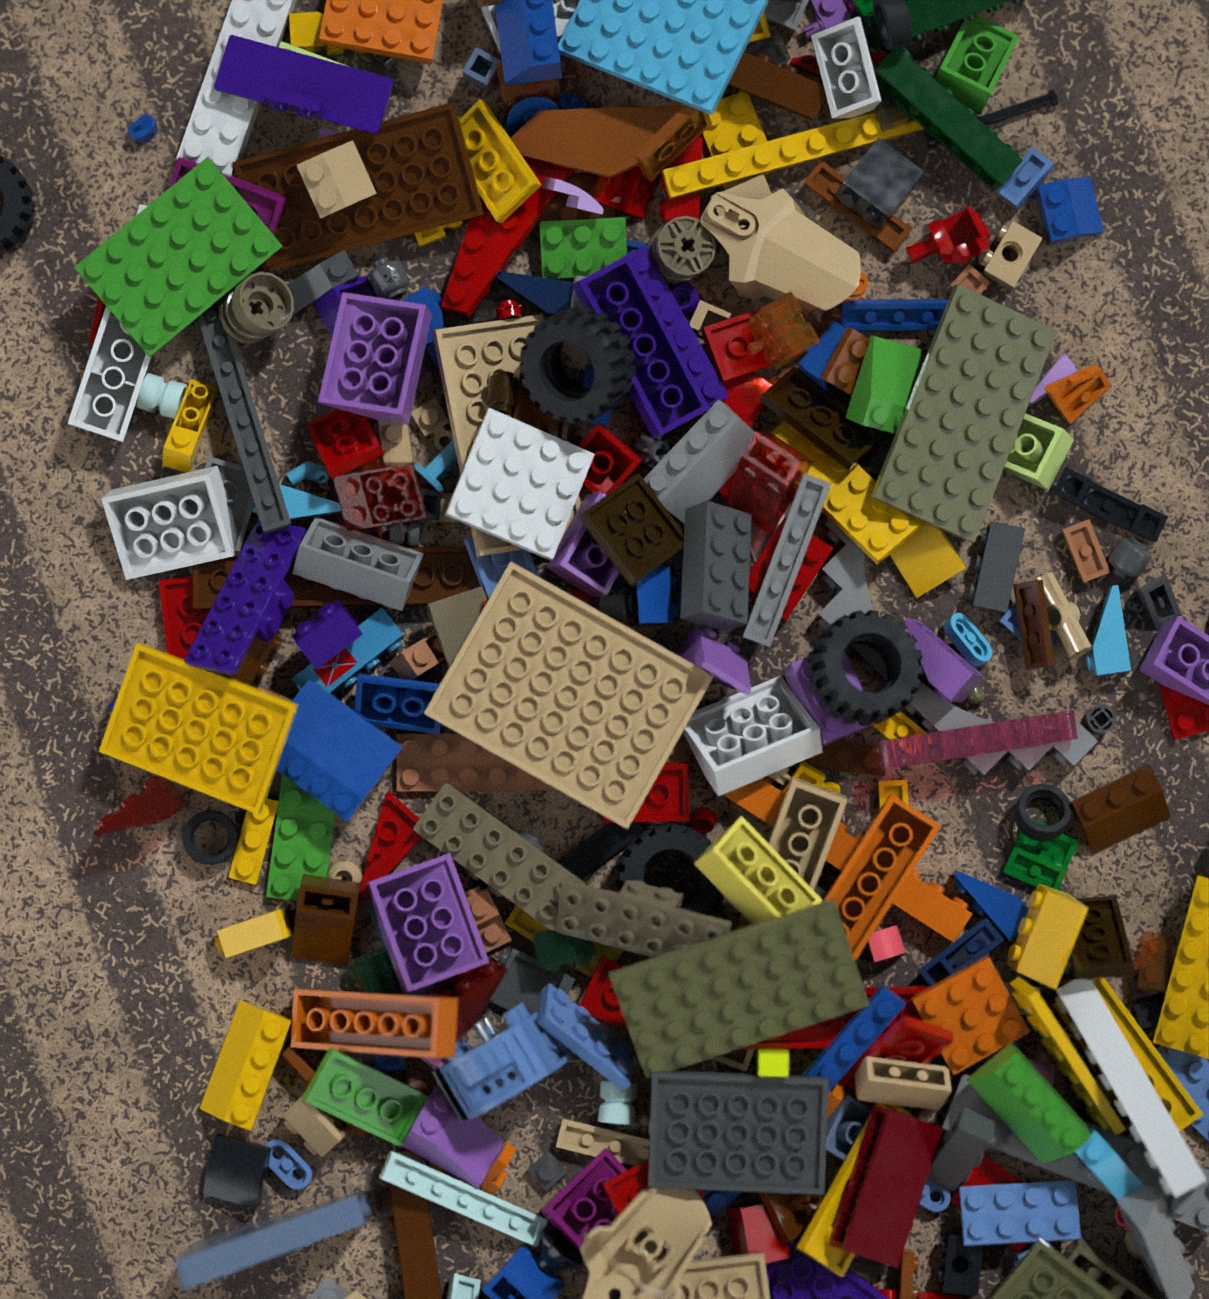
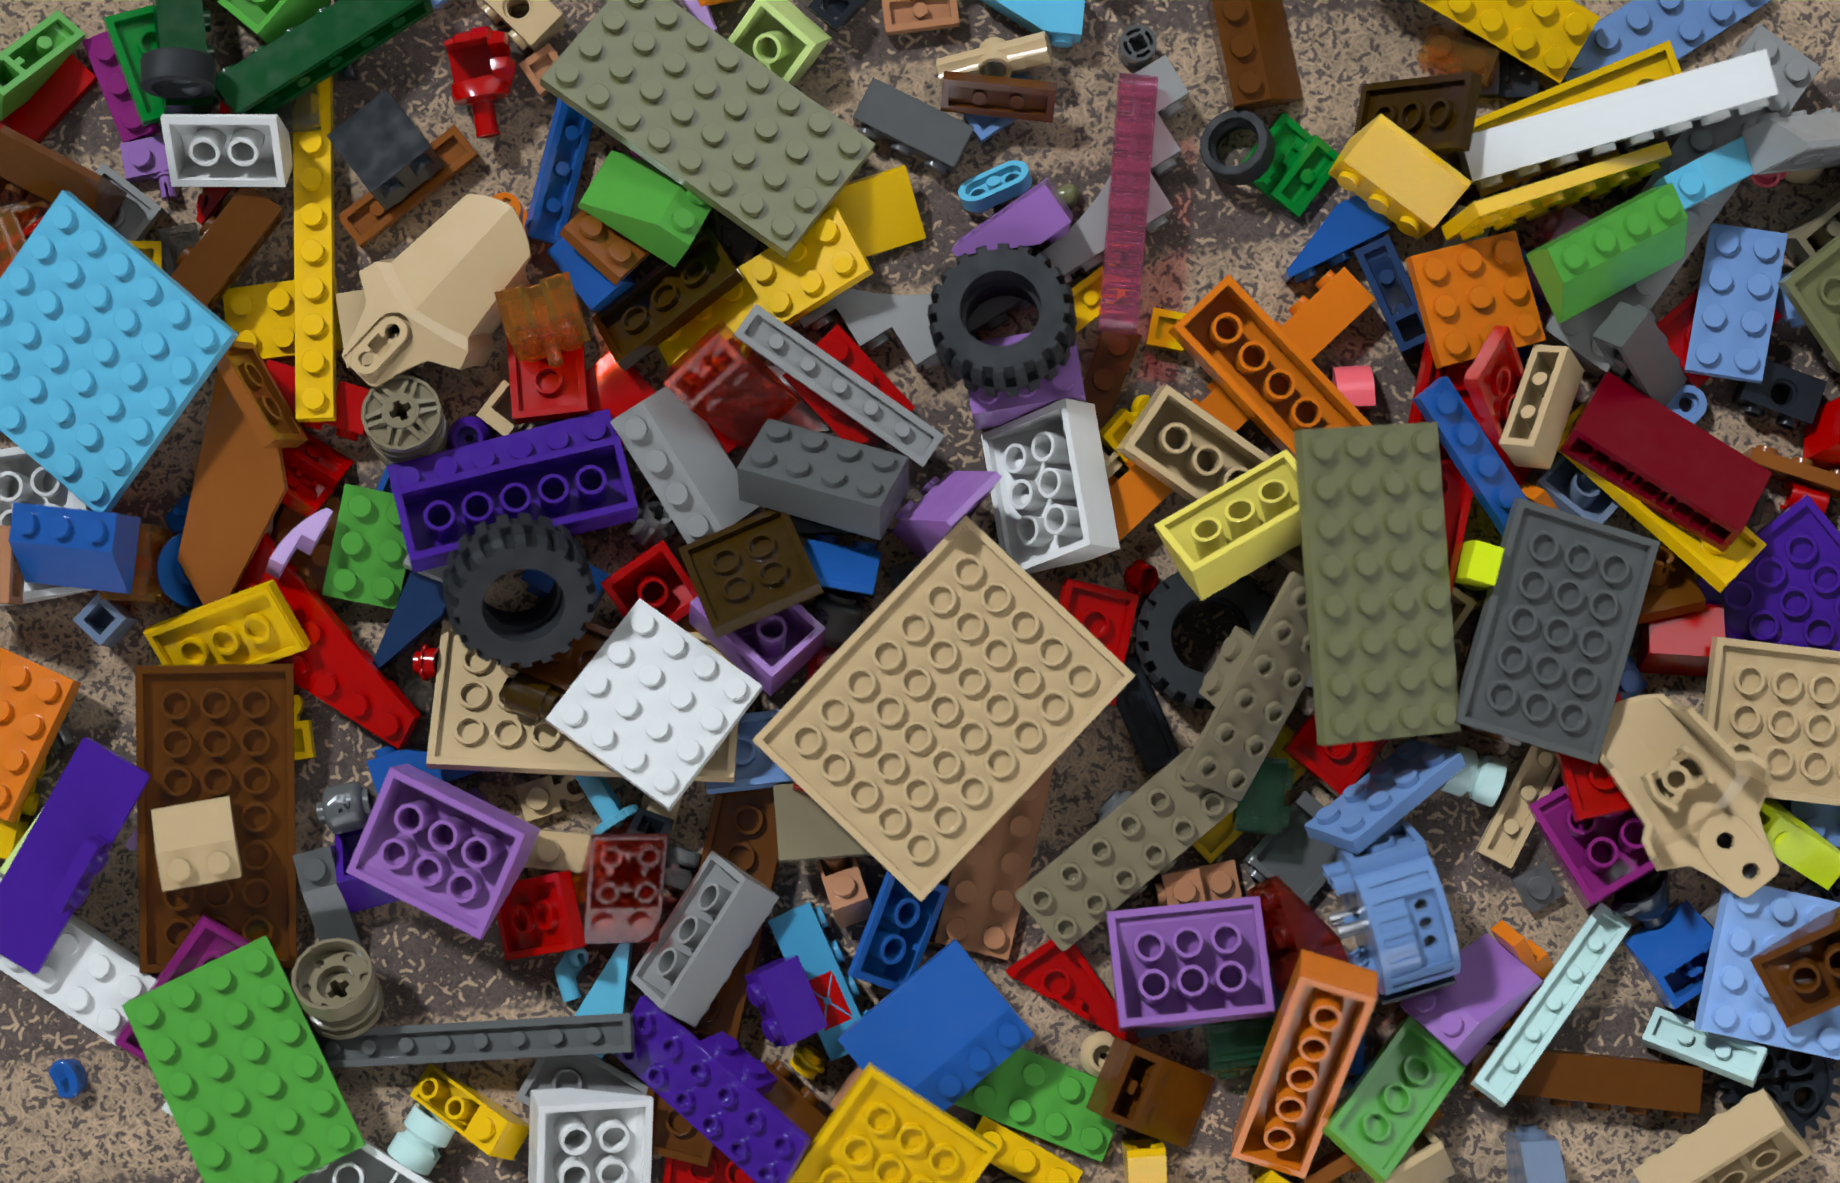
camera: 75 degrees left, 0 degrees up
(286, 662) = (807, 1061): none -> yellow plate

